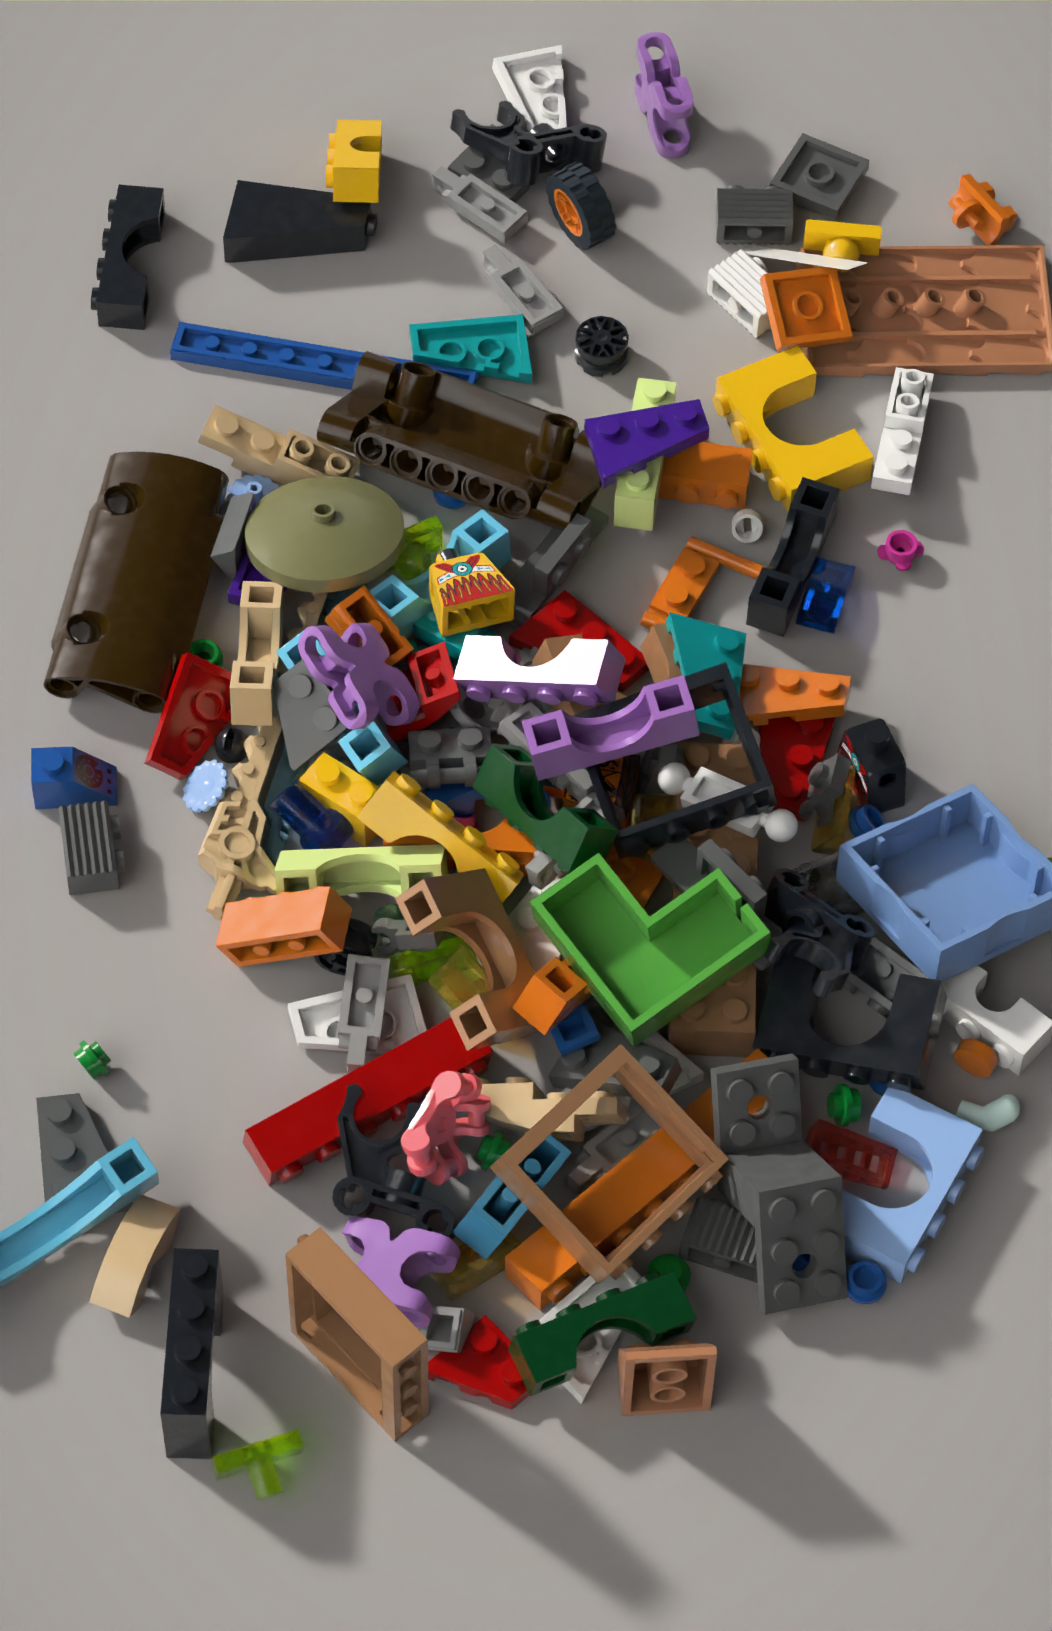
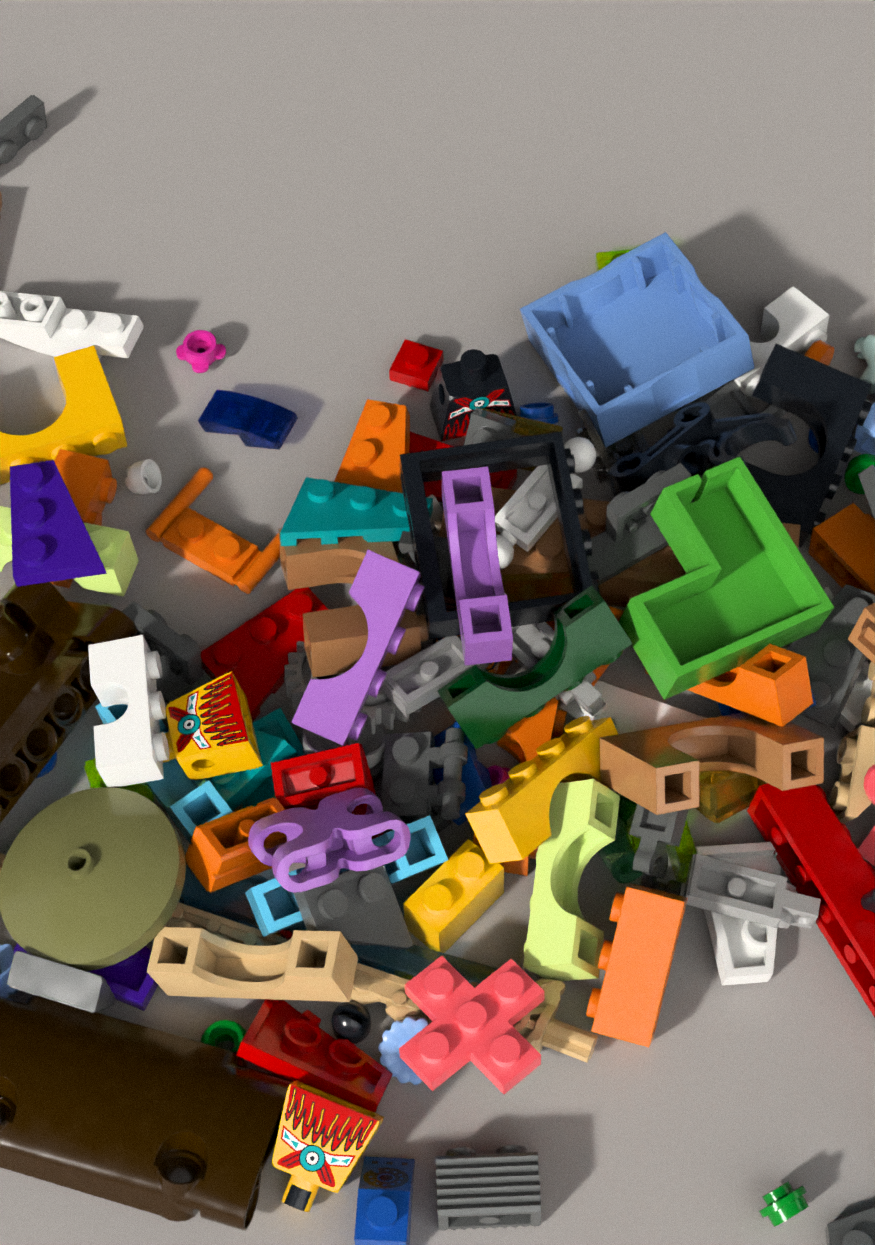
camera: 80 degrees left, 0 degrees up
(118, 723) = (320, 1142): none -> torso
(221, 813) = (472, 1024): none -> coral plate
(310, 819) = (487, 929): clear blue piece -> none
(441, 534) = (132, 746): none -> white arch
(802, 540) = (244, 454): black arch -> none
(917, 724) = (416, 365): none -> red plate

